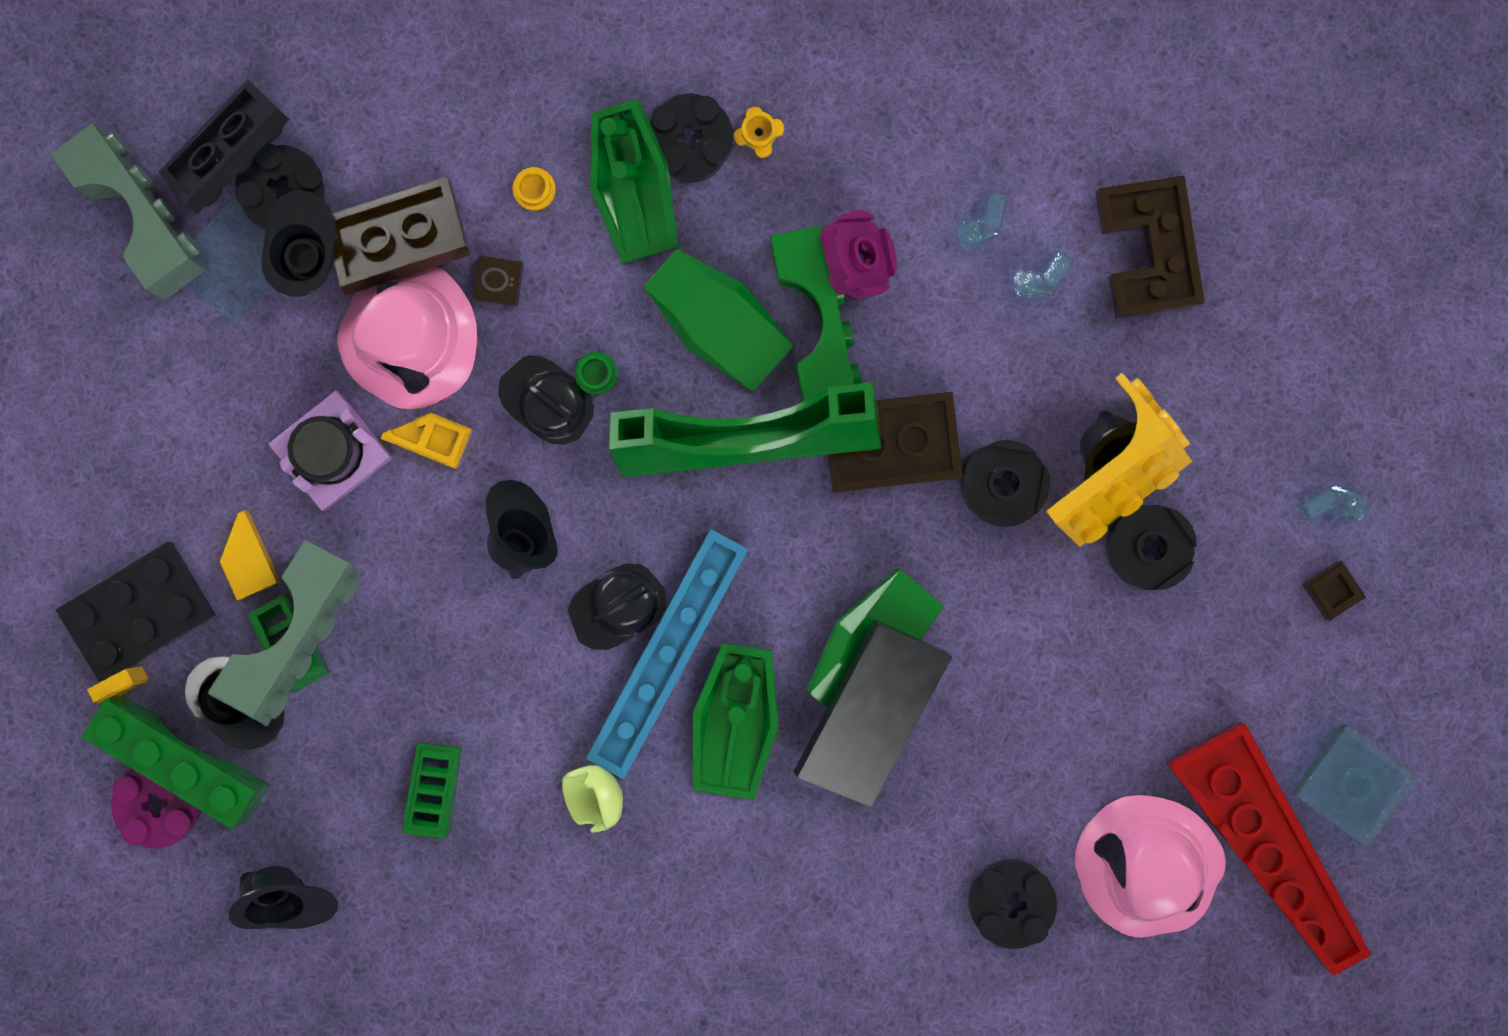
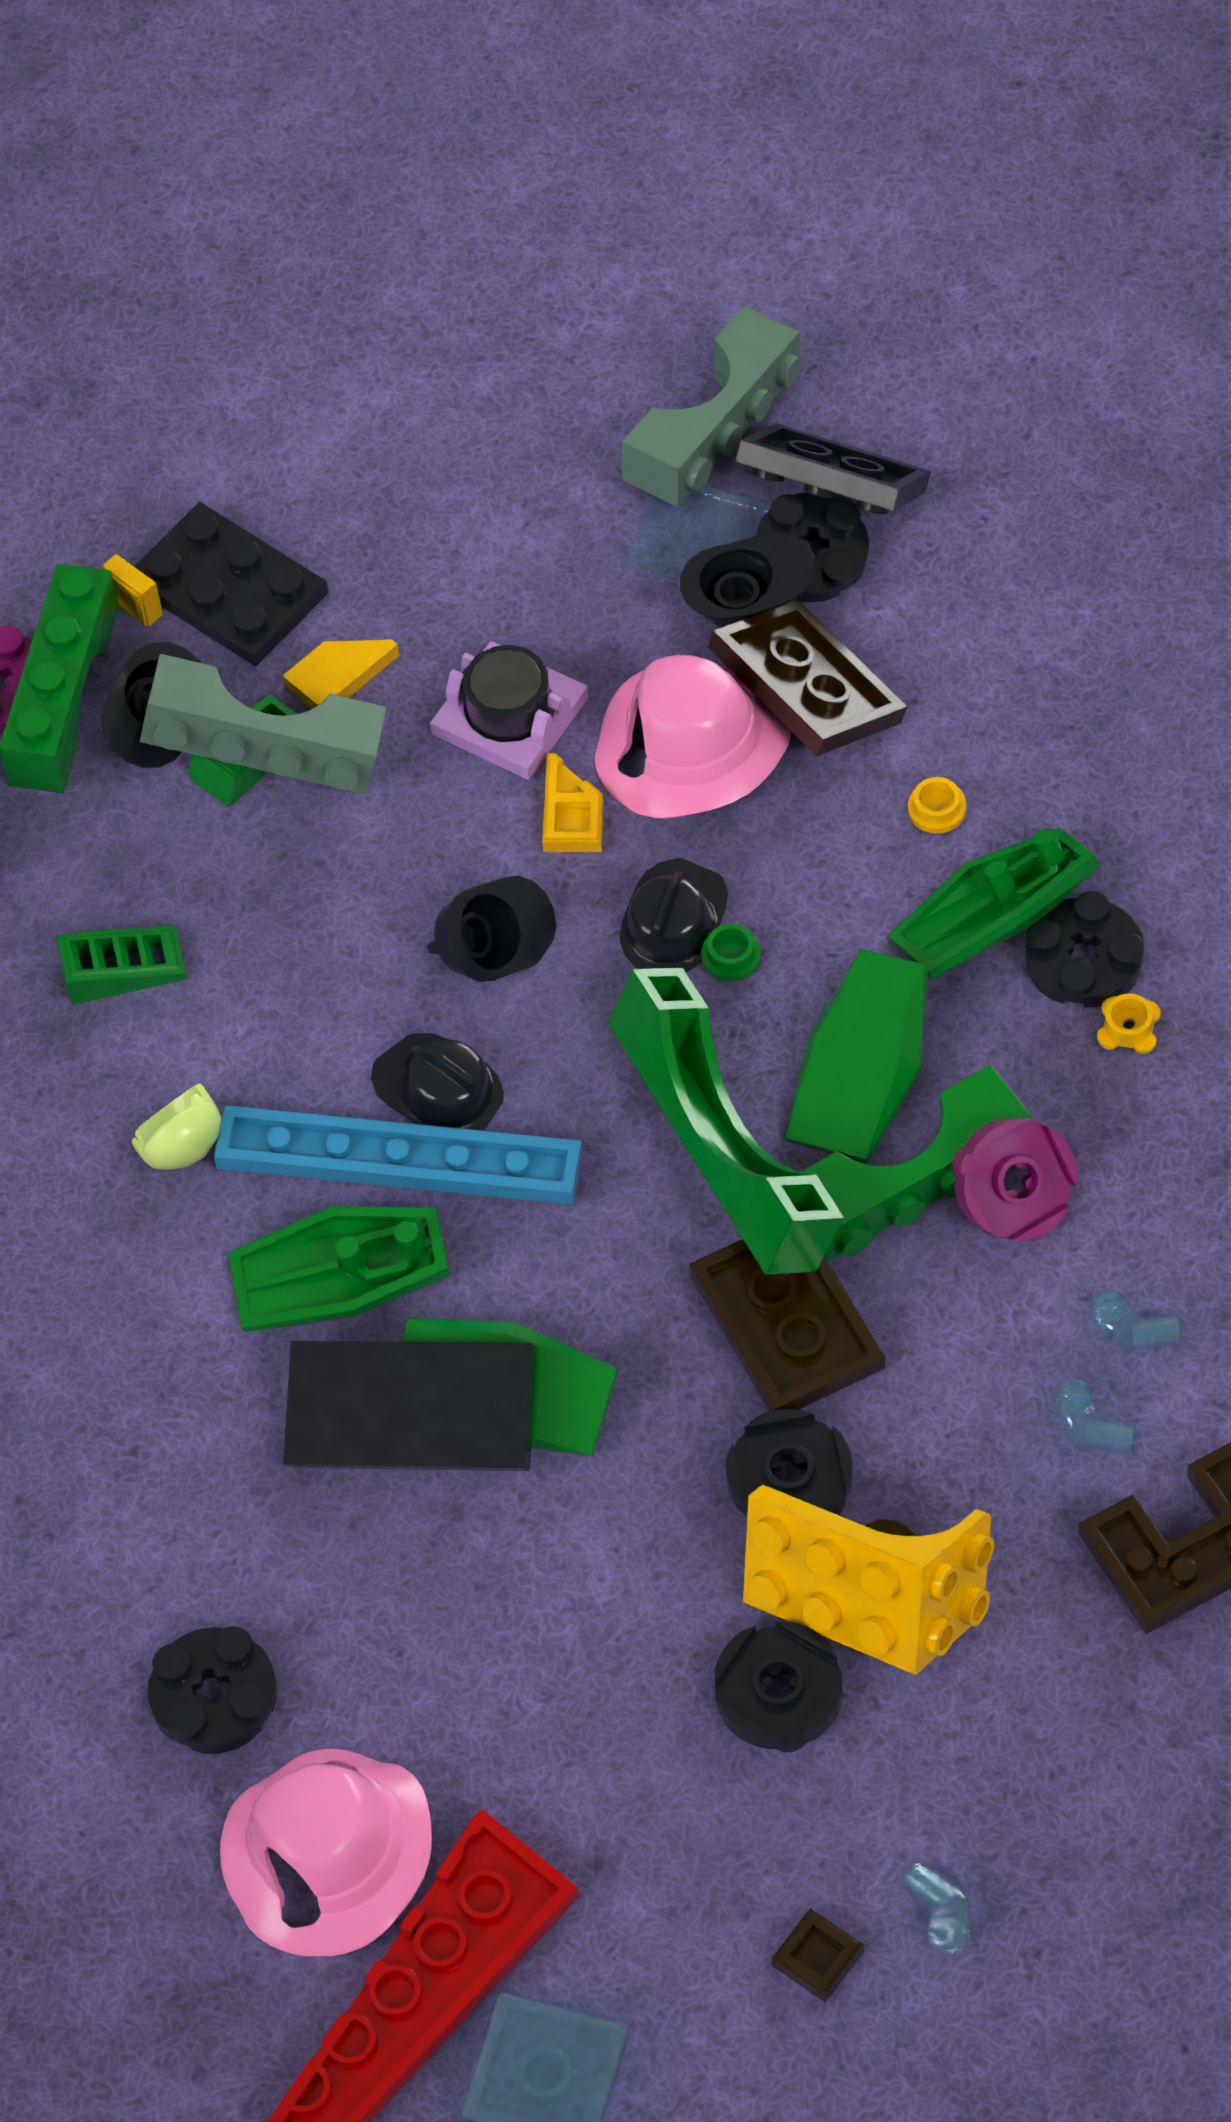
camera: 75 degrees right, 30 degrees down
(498, 281) = (802, 810): dark brown tile -> none

